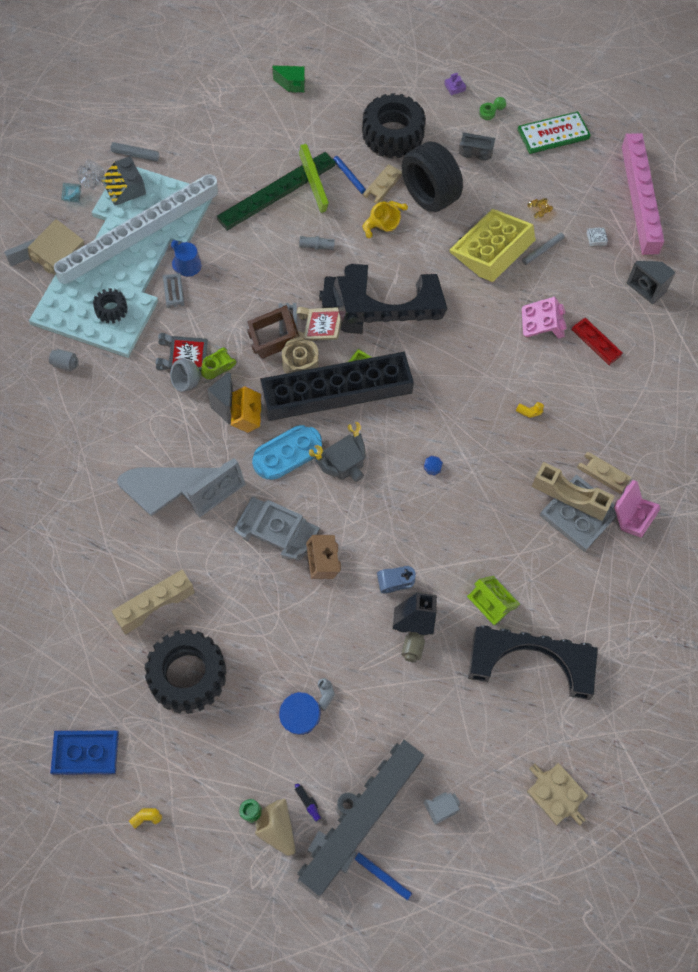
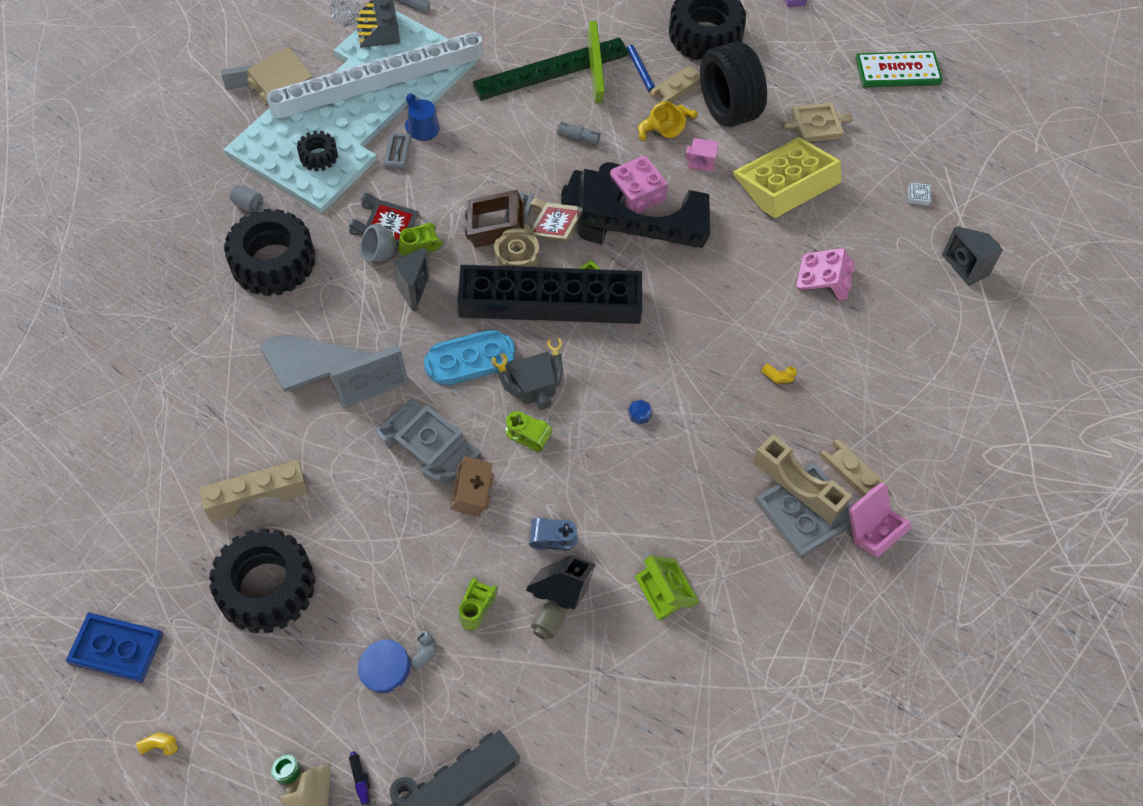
camera: 15 degrees right, 5 degrees down
(71, 192) = (318, 25): clear light blue tile -> none
(93, 382) = (263, 230): none -> black tyre
(246, 409) = (435, 297): light orange brick -> none
(354, 501) = (528, 430): none -> lime piece
(354, 644) = (477, 599): none -> lime piece
(380, 276) = (640, 184): none -> bright pink bracket
(421, 240) = (702, 154): none -> bright pink brick
(476, 146) = (799, 65): dark grey bracket -> none
(499, 104) = (826, 30): bright green plate -> none
(503, 192) = (817, 122): none -> tan plate
(535, 203) = (853, 141): clear yellow piece -> none
(543, 248) = (849, 194): light grey bar -> none
(575, 660) = (747, 685): black arch -> none
(597, 341) = (886, 313): red tile -> none
(642, 194) = (988, 157): bright pink brick -> none

